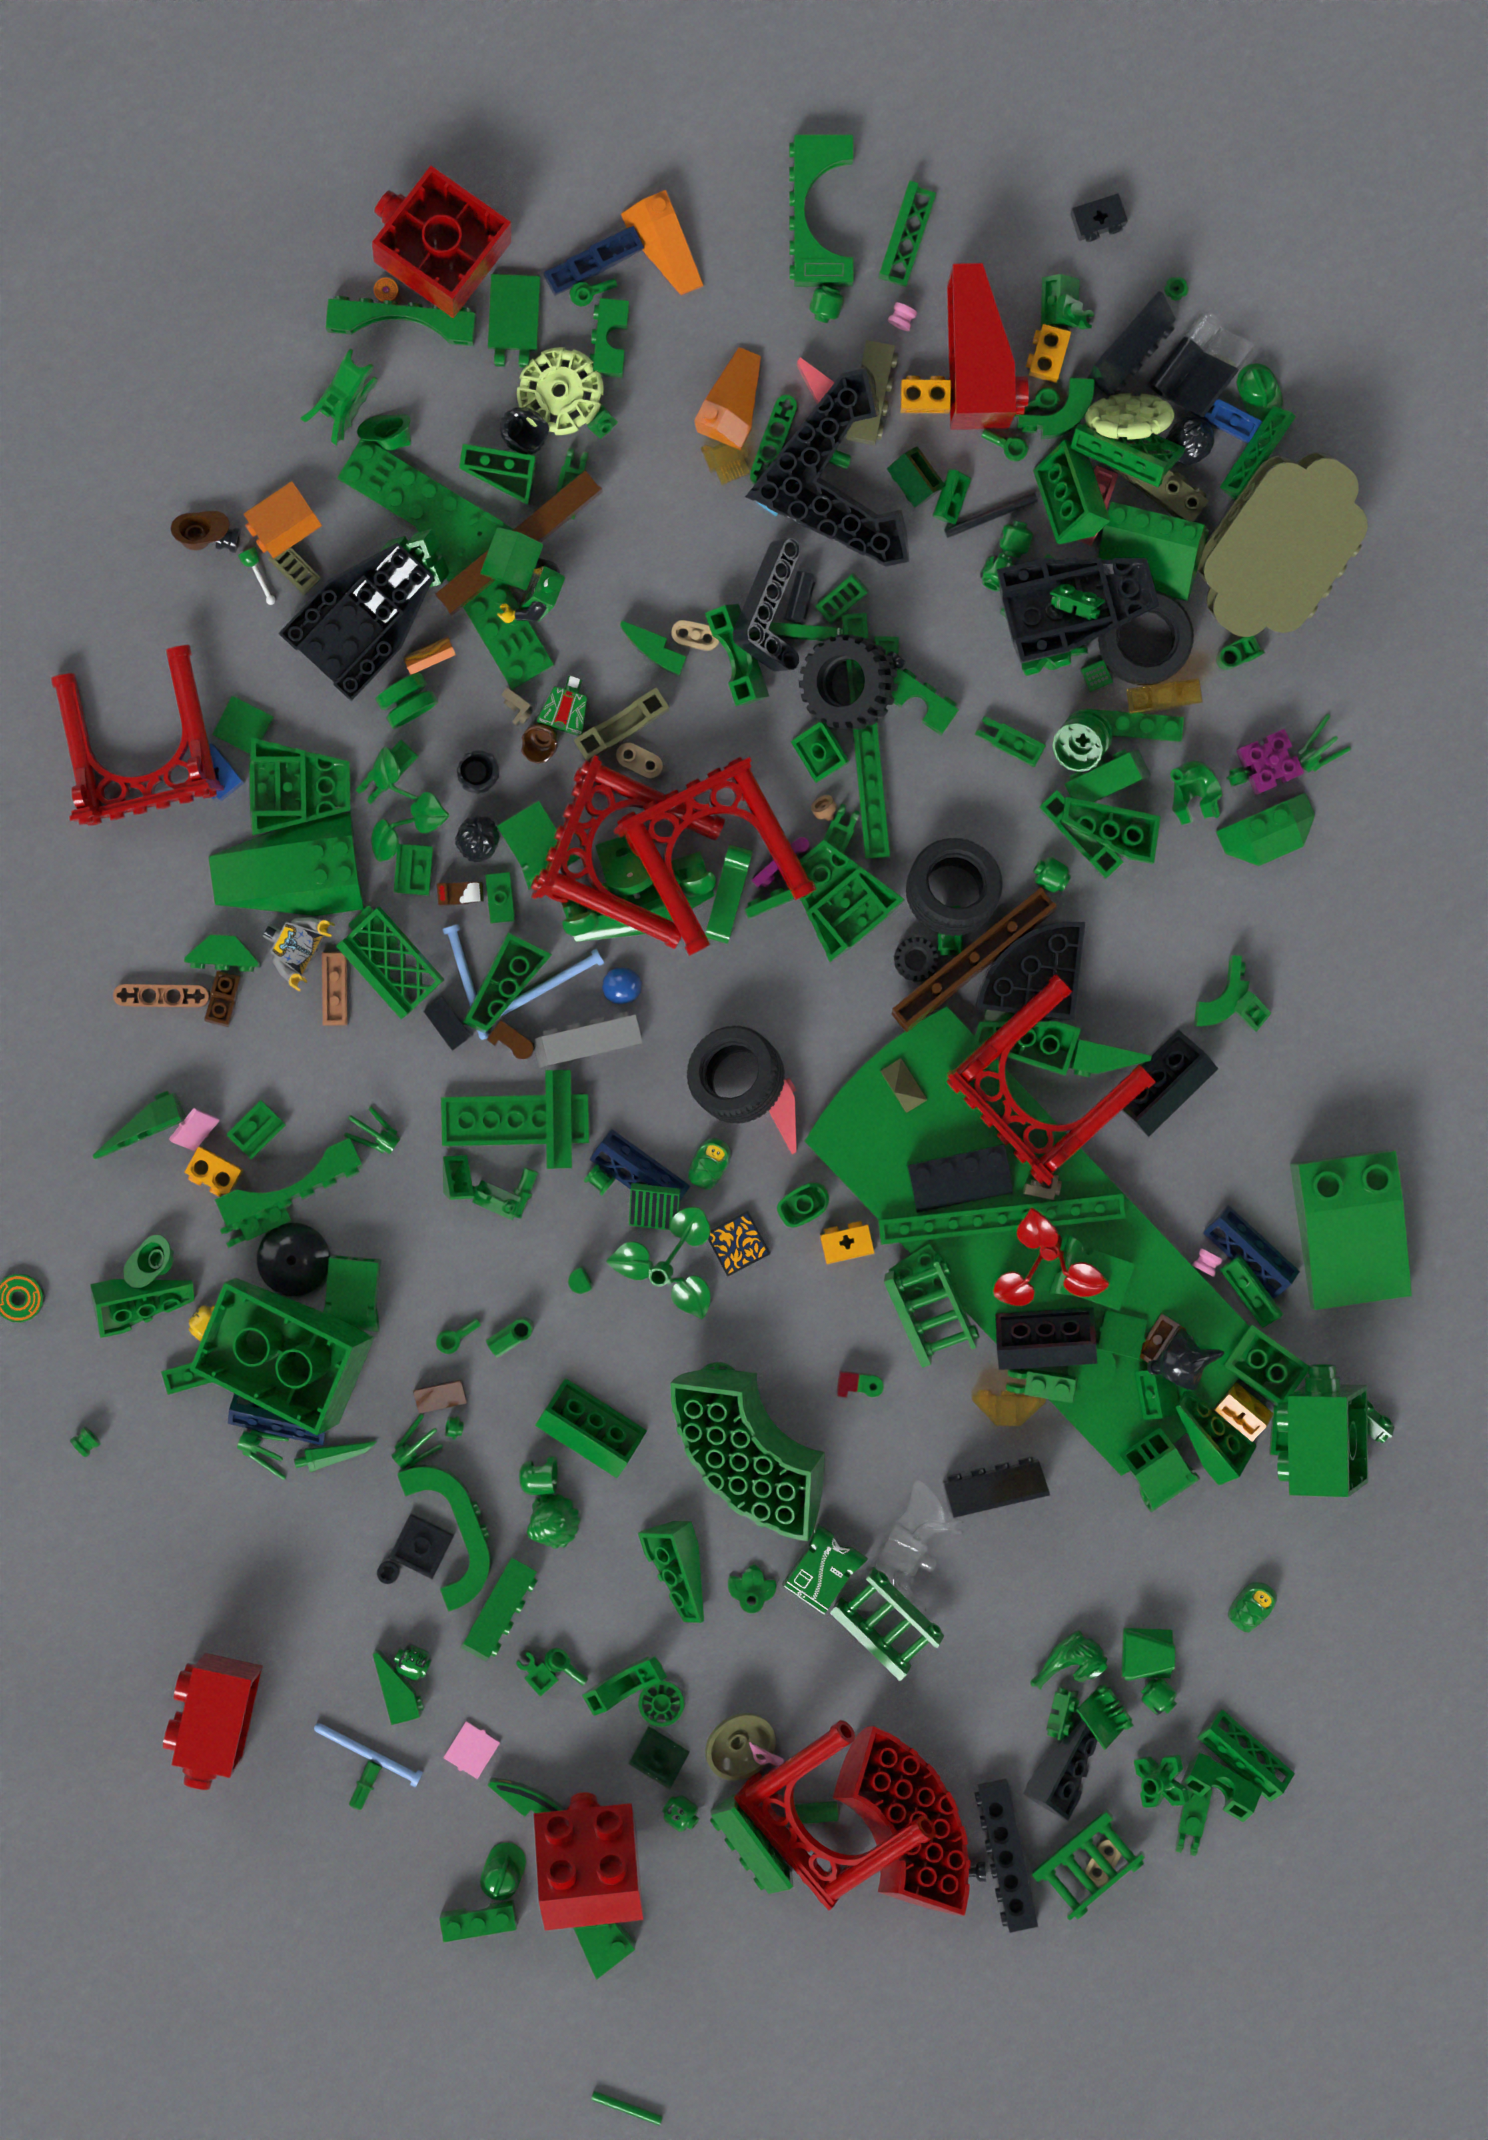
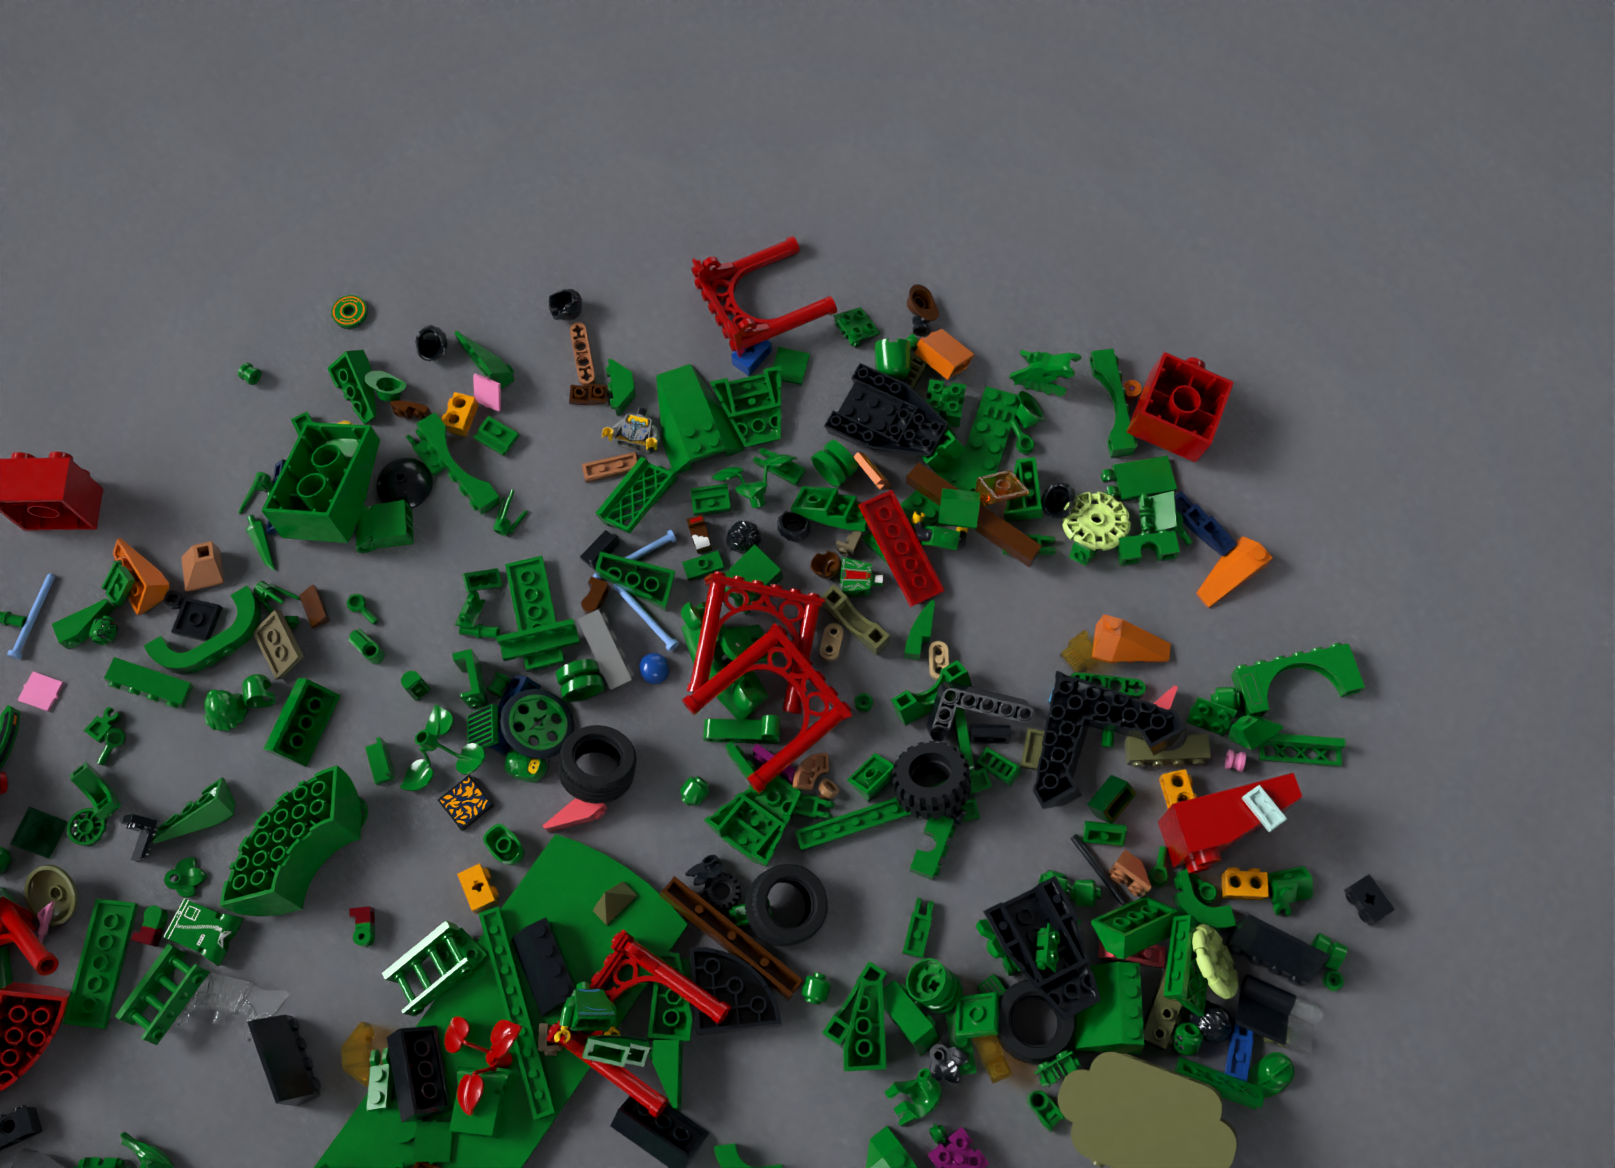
camera: 80 degrees right, 20 degrees down
(85, 1004) = (565, 304): none -> black hair
(102, 1192) = (431, 343): none -> black hair
(189, 1241) = (408, 409): none -> reddish brown slope
(207, 623) = (855, 326): none -> green hinge
(279, 590) = (893, 358): none -> green cylinder
(350, 536) = (947, 400): none -> green brick
(354, 1608) = (149, 582): none -> orange wedge
(354, 1638) = (118, 583): none -> green plate
(355, 1531) = (202, 566): none -> nougat slope
(431, 451) = (1024, 443): none -> green plate
(466, 716) = (829, 508): none -> green slope
(484, 1444) = (278, 644): none -> dark tan plate
(497, 500) = (999, 488): none -> clear orange slope
(542, 644) = (901, 548): none -> red plate
(565, 1206) = (468, 661): none -> green panel
(568, 311) = (1157, 512): none -> hinge
(622, 1077) = (579, 680): none -> green wheel
(663, 1339) = (380, 762): none -> green panel
(677, 1111) = (519, 740): none -> green wedge
(694, 1630) = (148, 831): none -> black bracket
(725, 733) = (863, 697): none -> green plate
(789, 966) = (694, 791): none -> green head
(796, 1628) = (153, 926): none -> leg
(797, 823) = (809, 770): none -> nougat tile
(829, 1694) = (100, 964): none -> green plate
(830, 551) = (1032, 749): none -> olive tile
(845, 329) = (1211, 716): none -> green hinge
(876, 283) = (1252, 731): none -> green slope
(888, 972) = (704, 871): none -> black plate
(988, 312) = (1264, 808): none -> light aqua plate
(1004, 479) = (1131, 873): none -> nougat slope
(1028, 1133) = (587, 1011): none -> green torso
(1075, 1109) = (617, 1050): none -> green slope
(1128, 700) = (977, 1015): none -> green tile
(1148, 280) = (1336, 950): none -> green wheel
(1169, 746) = (948, 1065): none -> black plate
(1201, 613) = (1065, 1059): none -> green hinge
(1203, 472) = (1187, 1039): none -> green head

